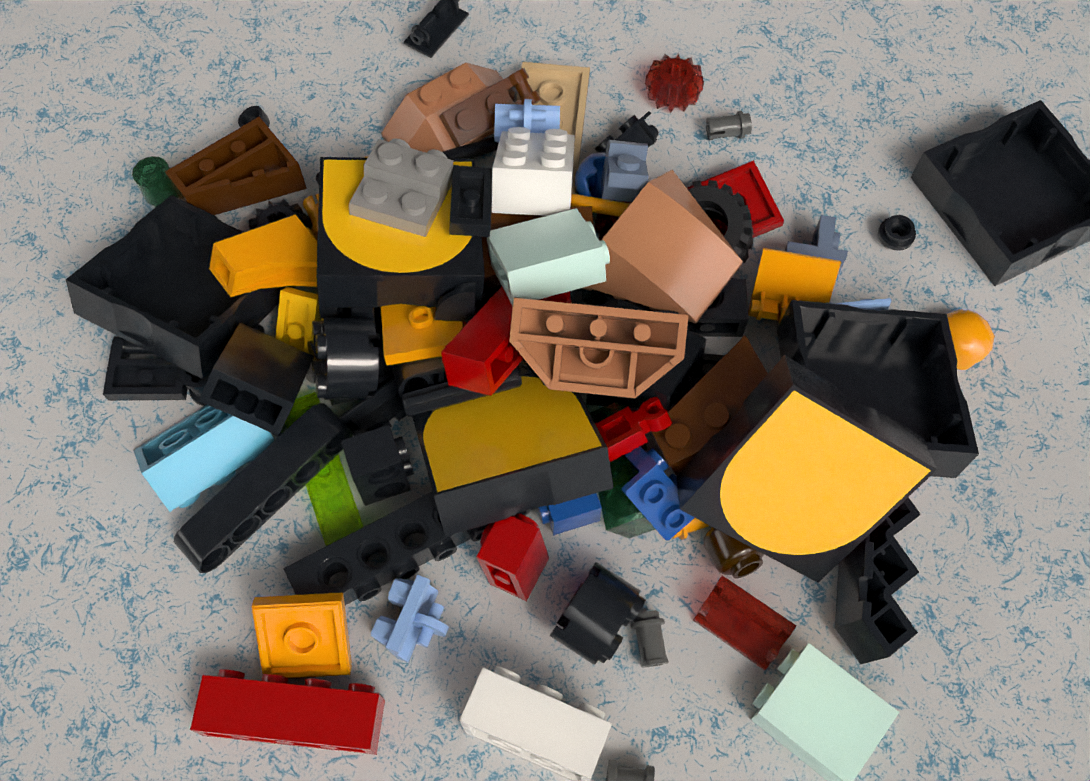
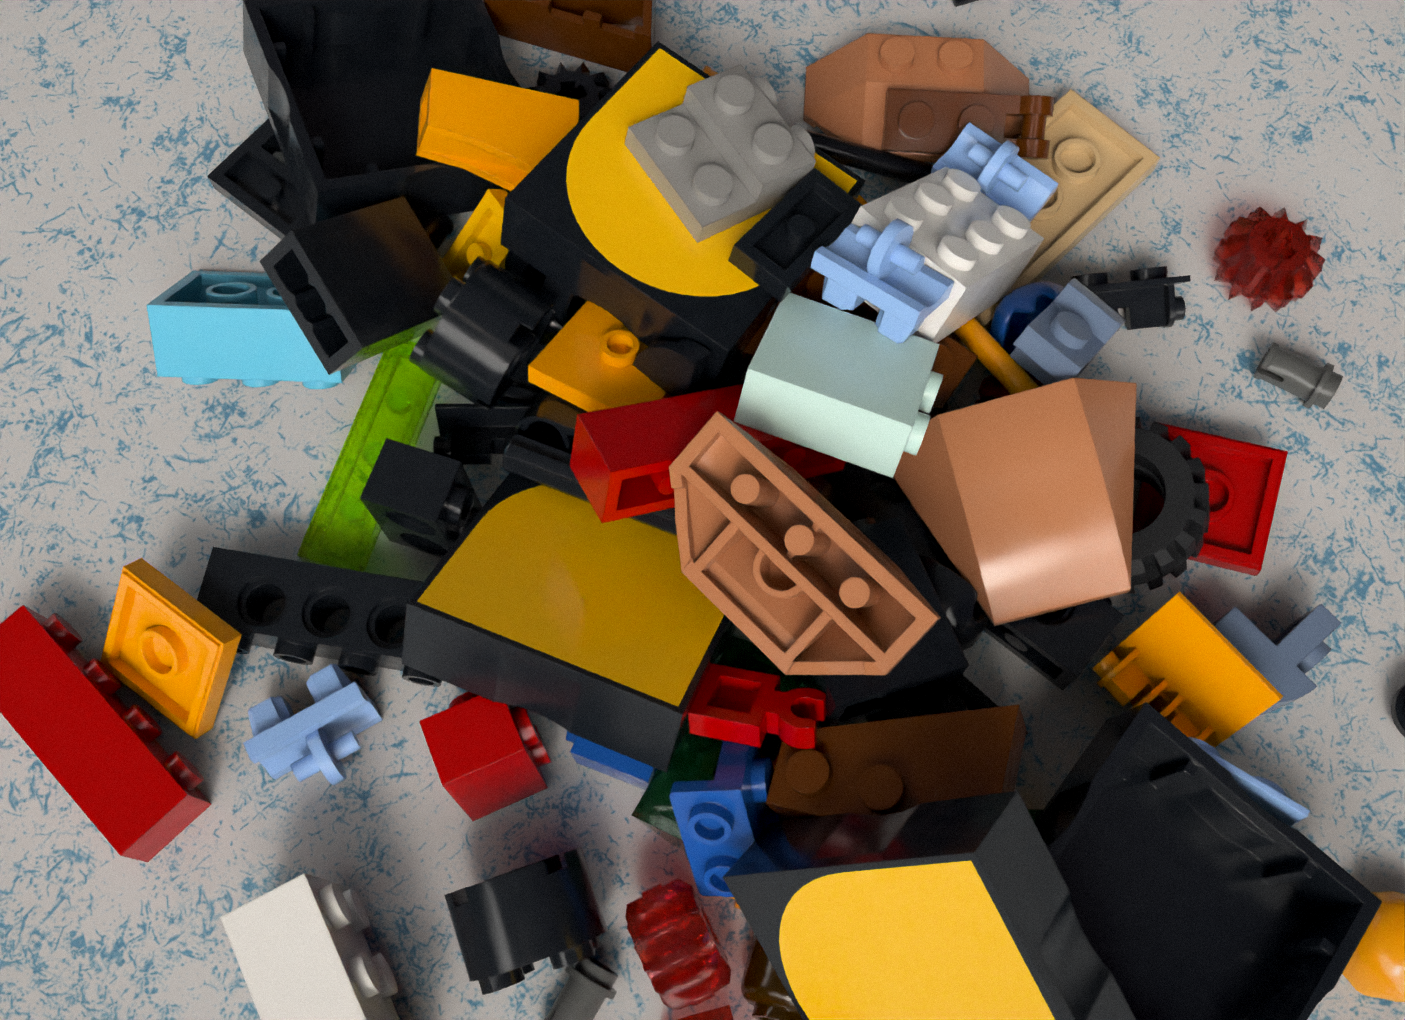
camera: 40 degrees right, 5 degrees up
(262, 488) = (282, 426): black beam -> none
(529, 189) = (883, 272): none -> light blue hips
(675, 570) = (677, 944): none -> clear red gear

